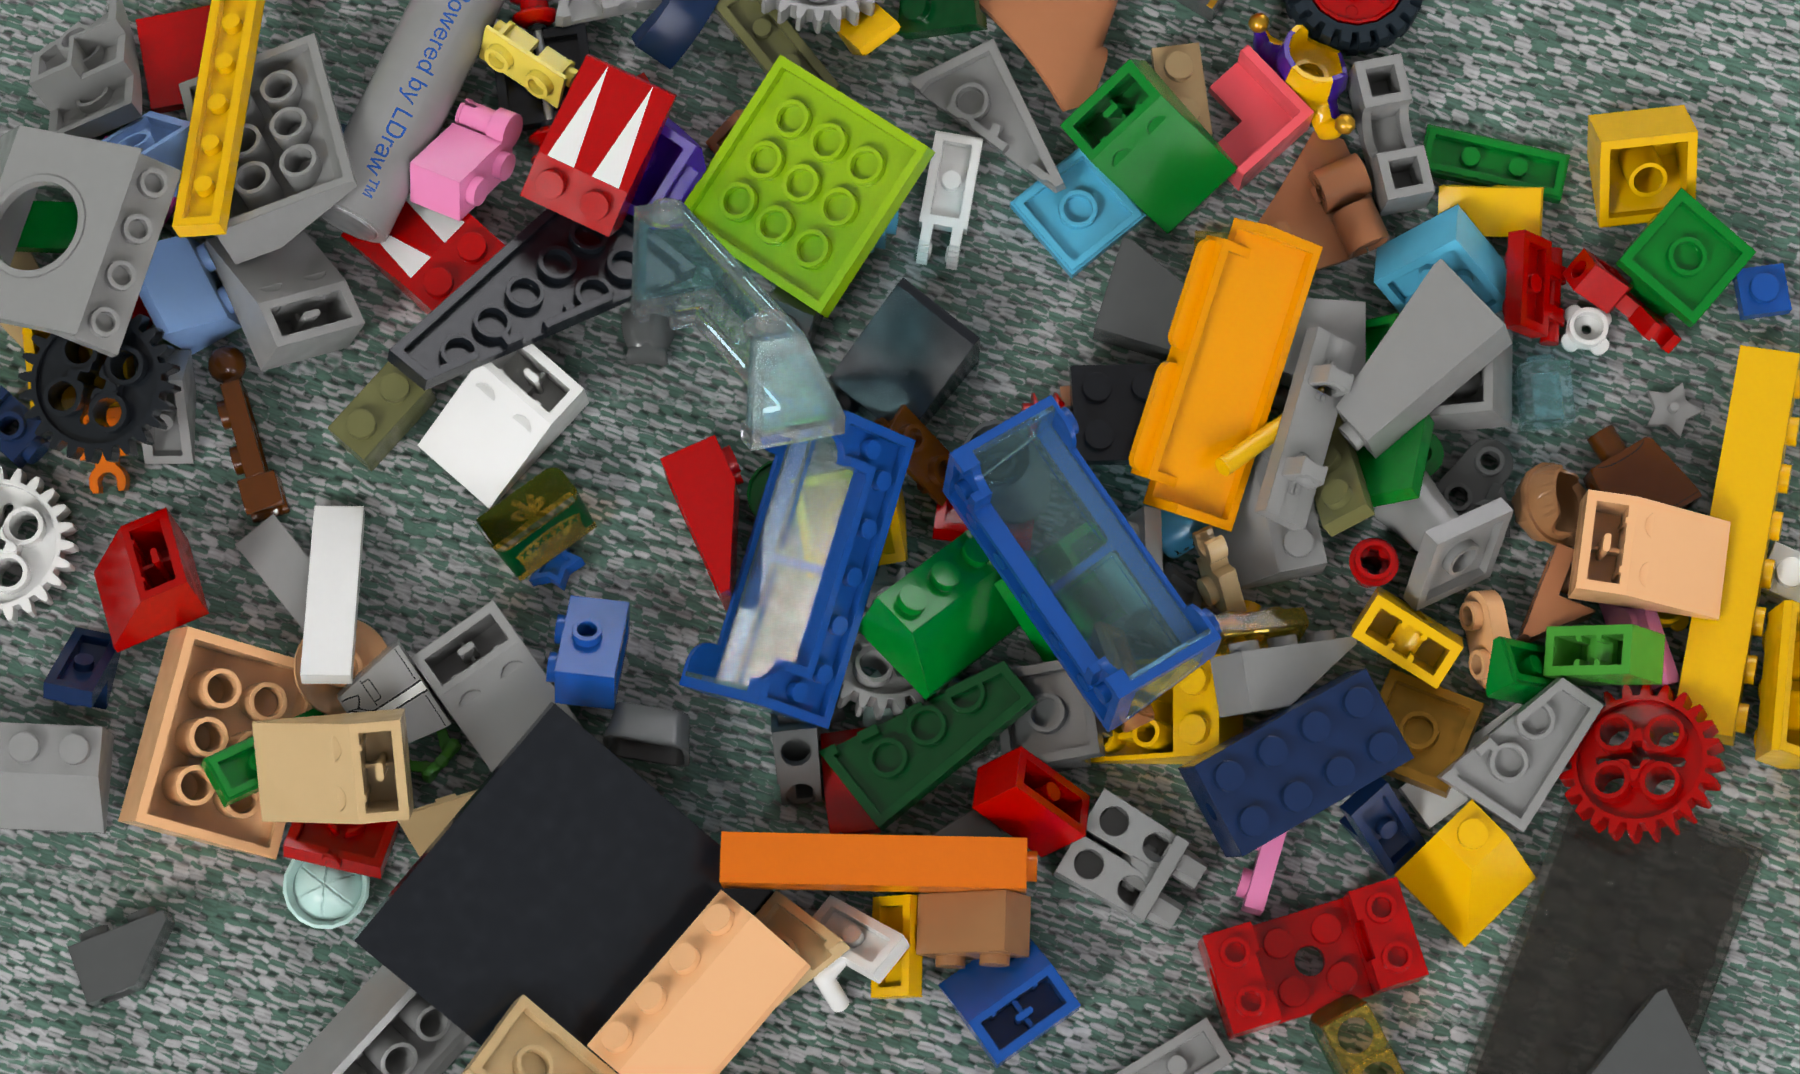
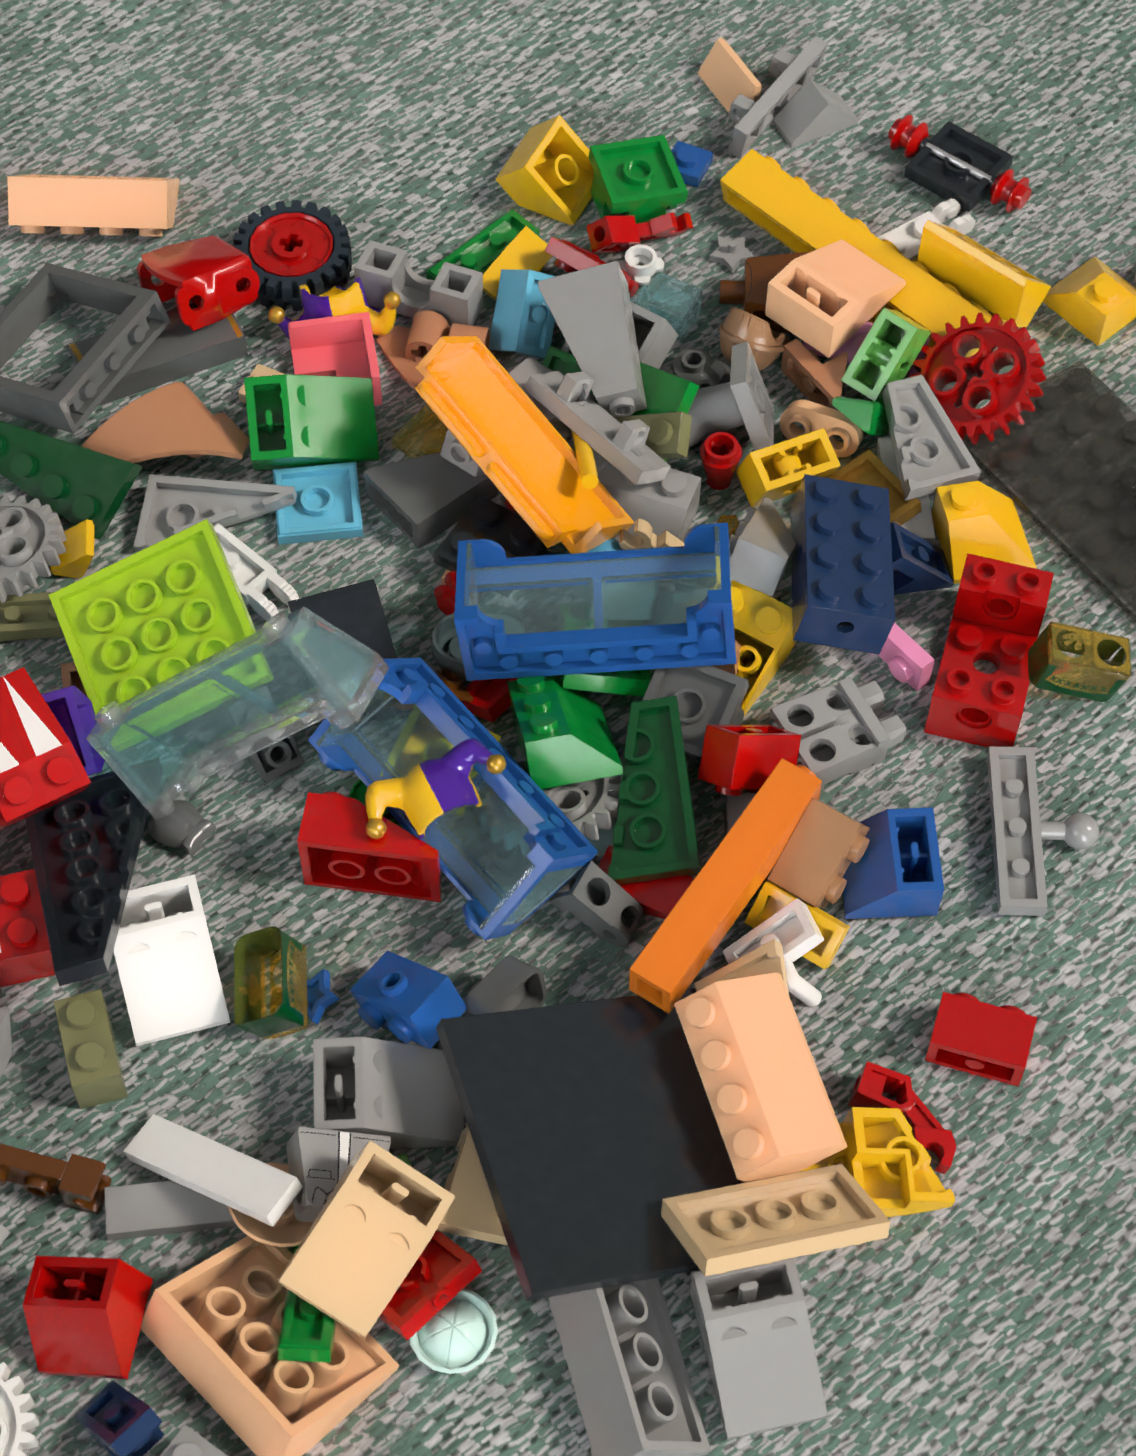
camera: 60 degrees left, 20 degrees down
(776, 545) = (431, 788): none -> piece

